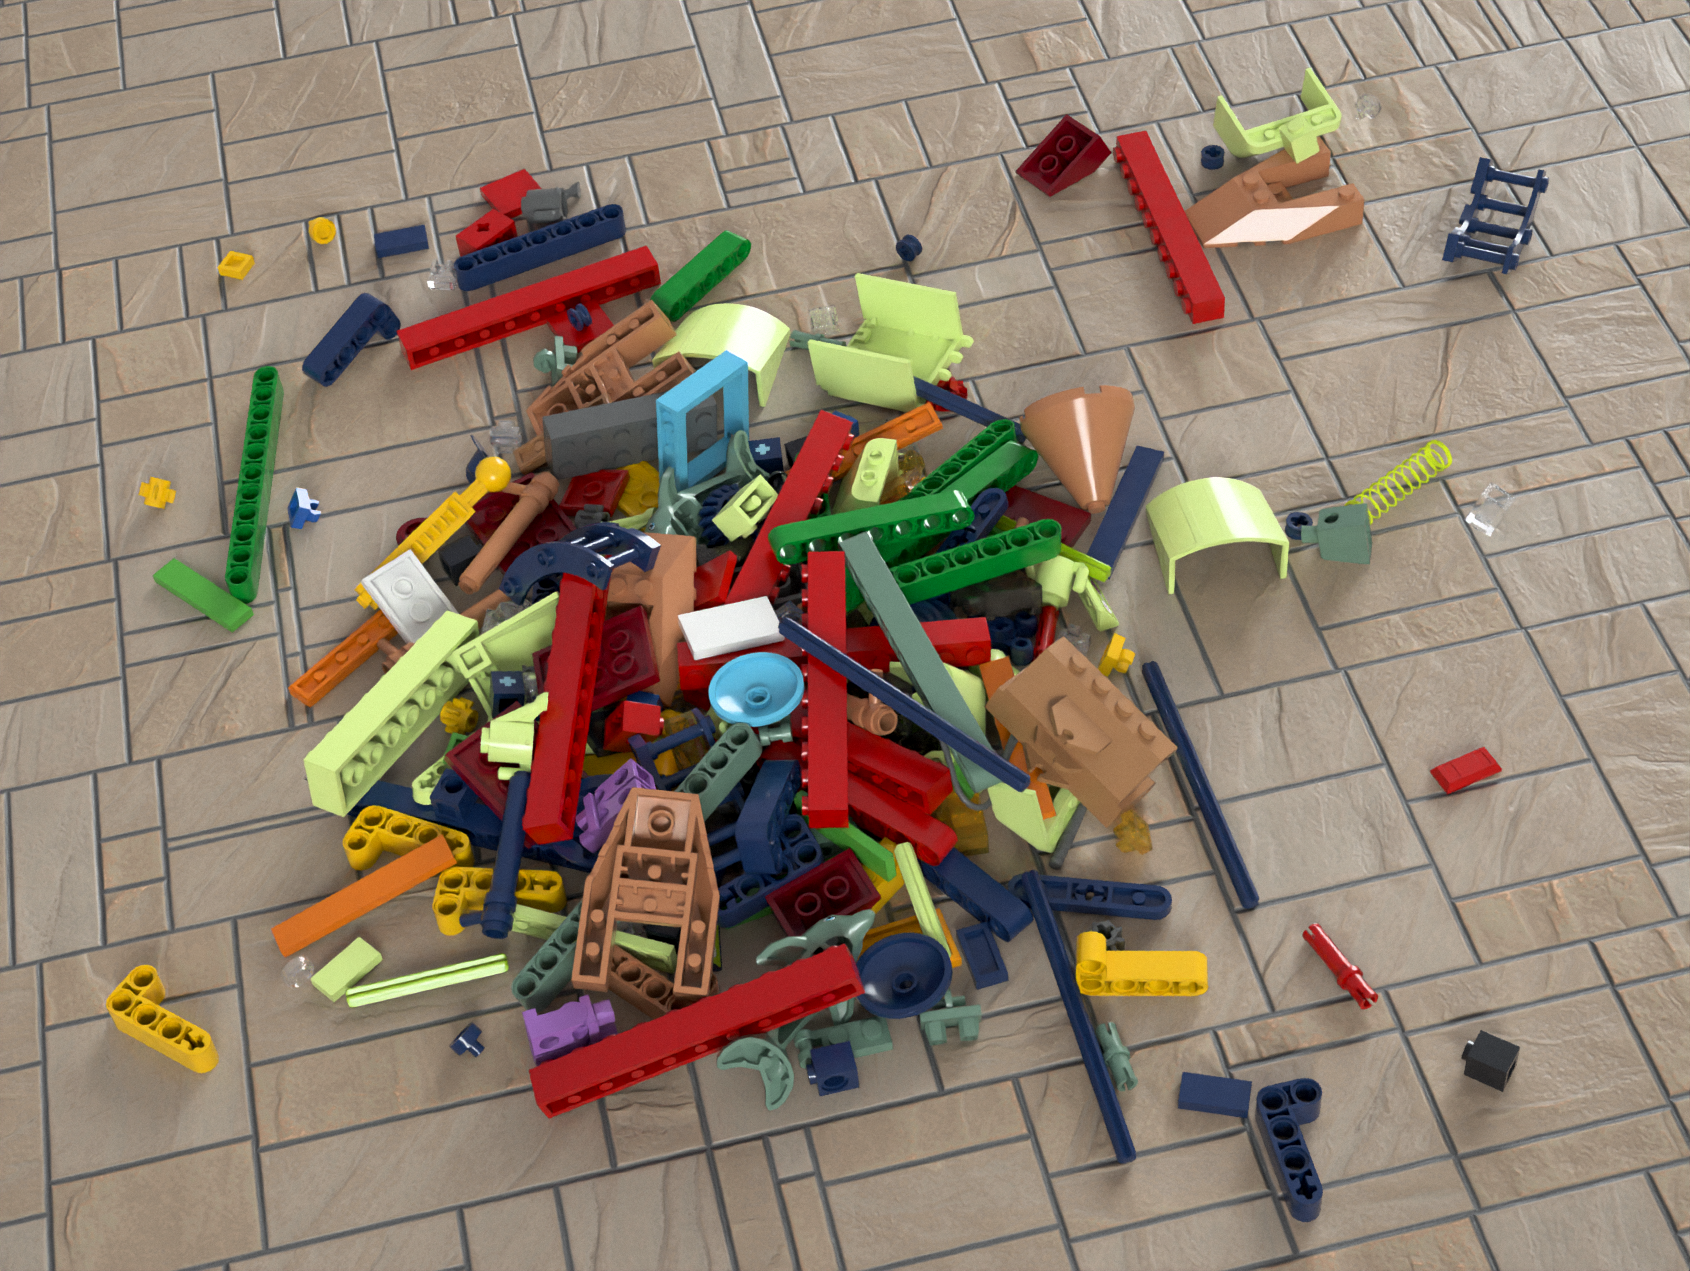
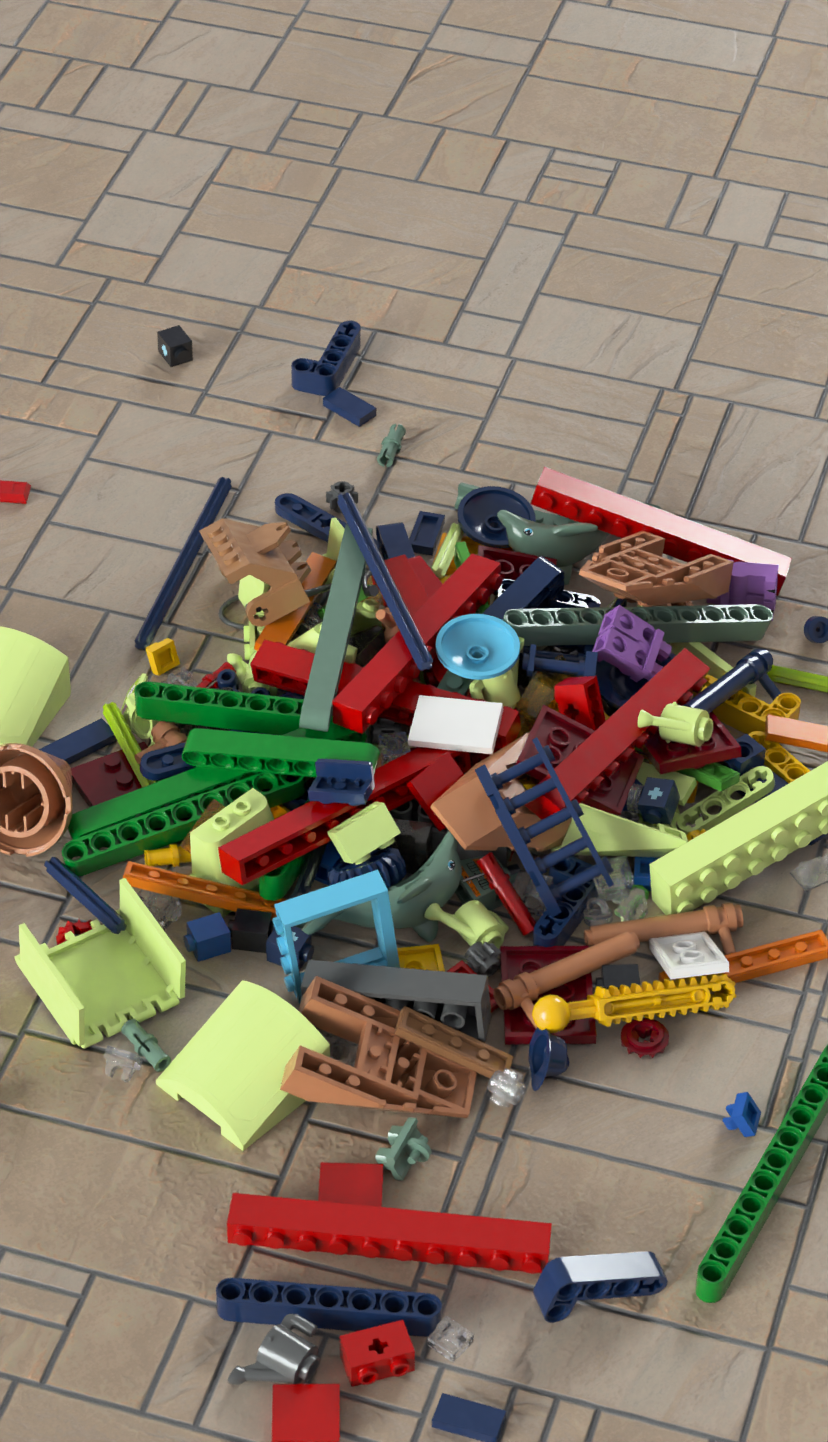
camera: 155 degrees left, 5 degrees down
(579, 317) = (353, 1176): dark blue bush -> none
(701, 274) = (193, 1180): green beam -> none
(784, 508) = (342, 782): none -> dark blue bracket
(1079, 1018) = (400, 461): dark blue axle -> none
(1137, 972) = (328, 468): yellow beam -> none
(1348, 976) = (209, 420): red pin -> none

